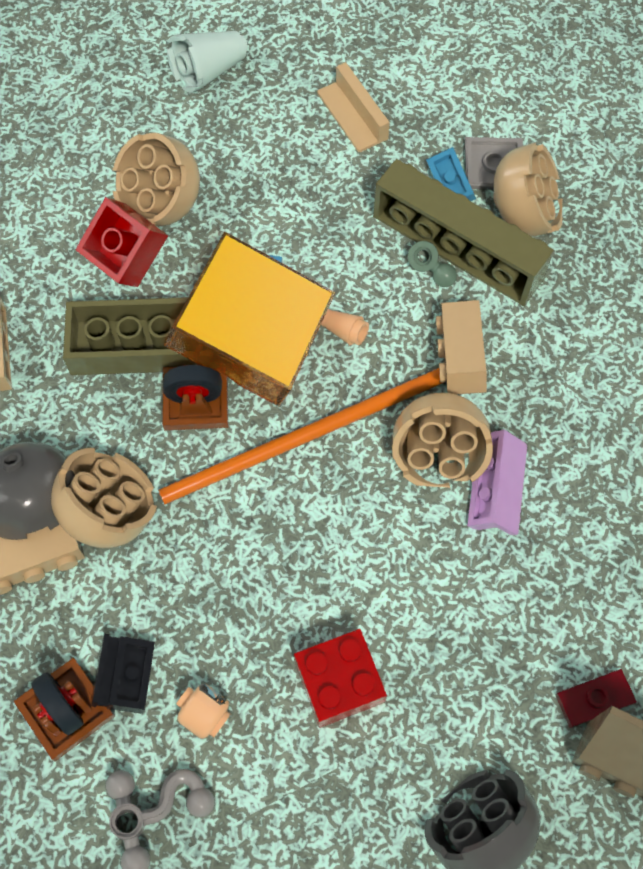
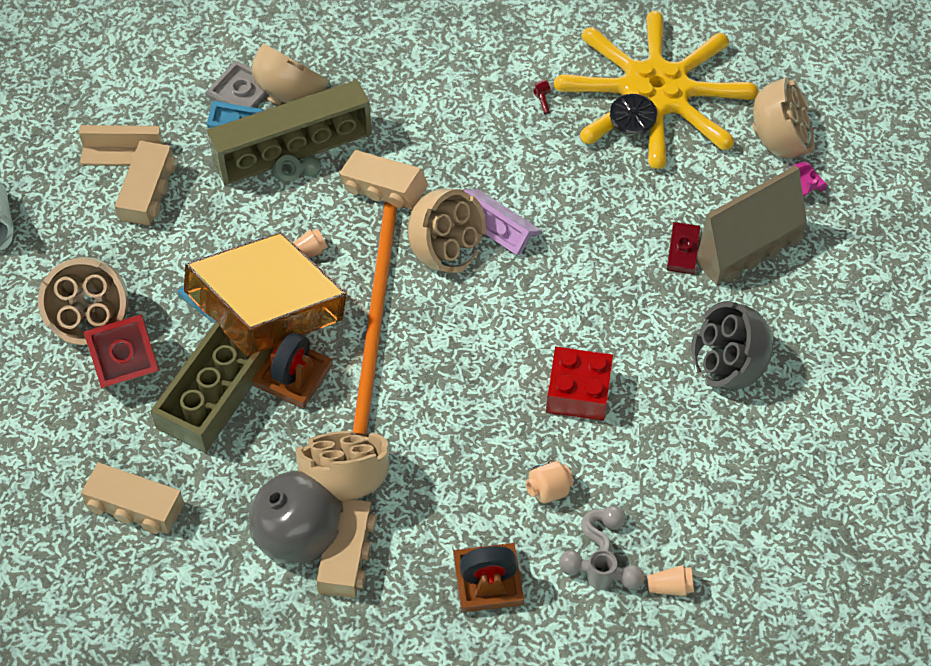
camera: 60 degrees left, 10 degrees down
(123, 674) = (487, 520): black plate -> none
(323, 151) = (145, 183): none -> tan brick

